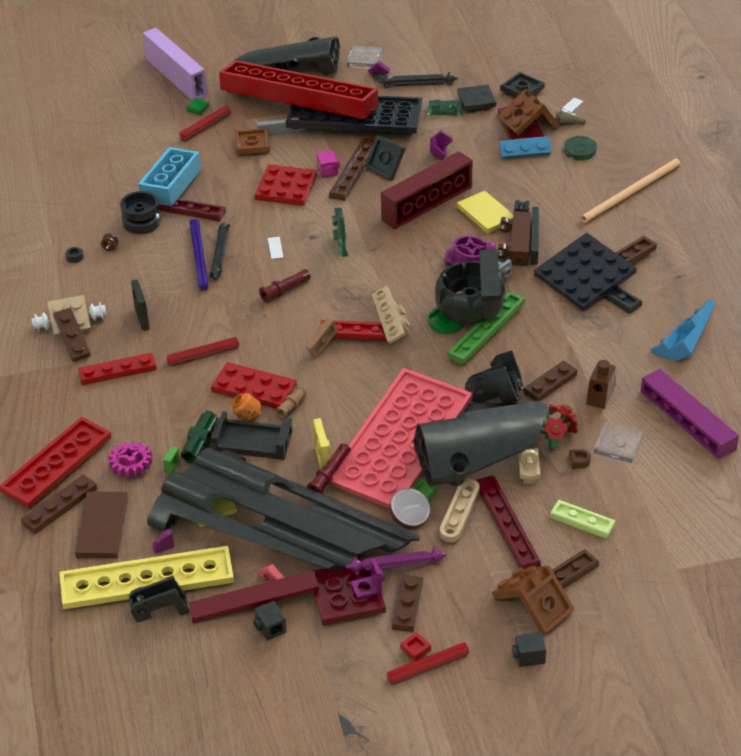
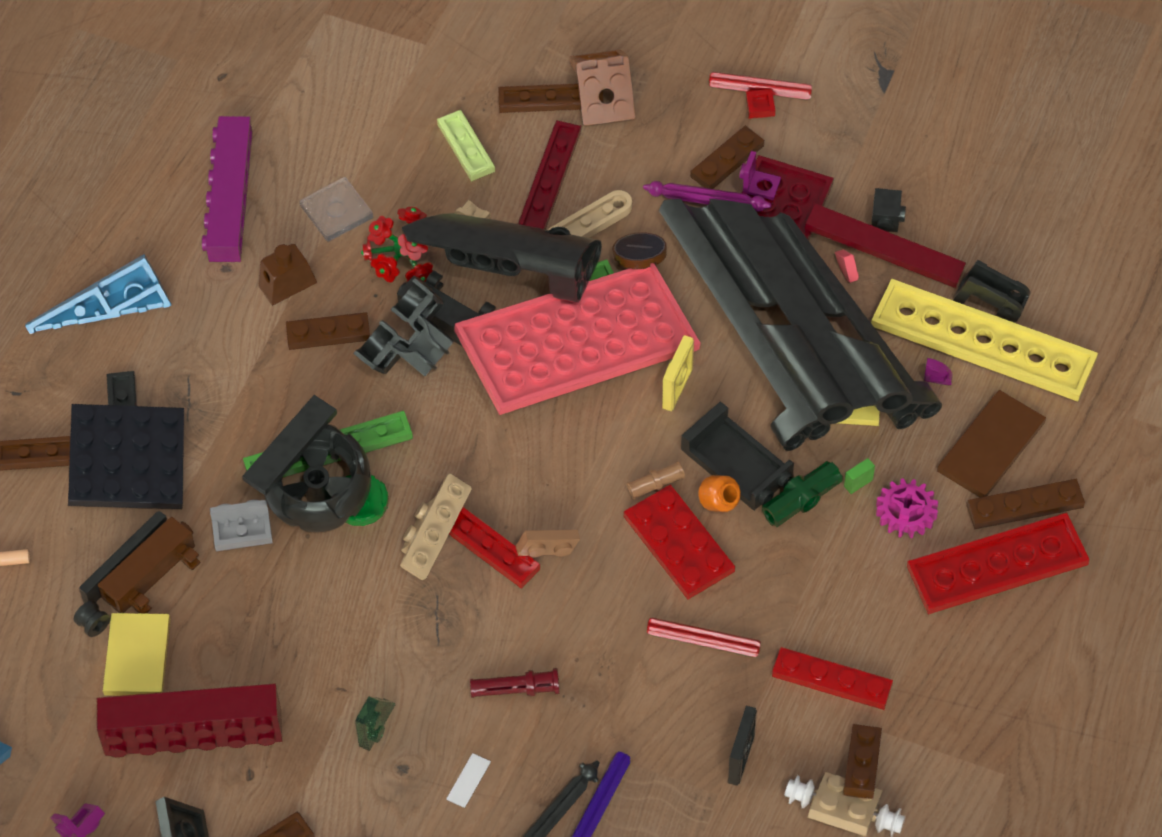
camera: 145 degrees left, 15 degrees up
(325, 476) = (702, 336): dark red pin -> none
(467, 250) = (238, 586): magenta piece -> none
(529, 649) = (654, 36): pearl dark grey brick -> none
(579, 458) = (390, 211): reddish brown tile -> none

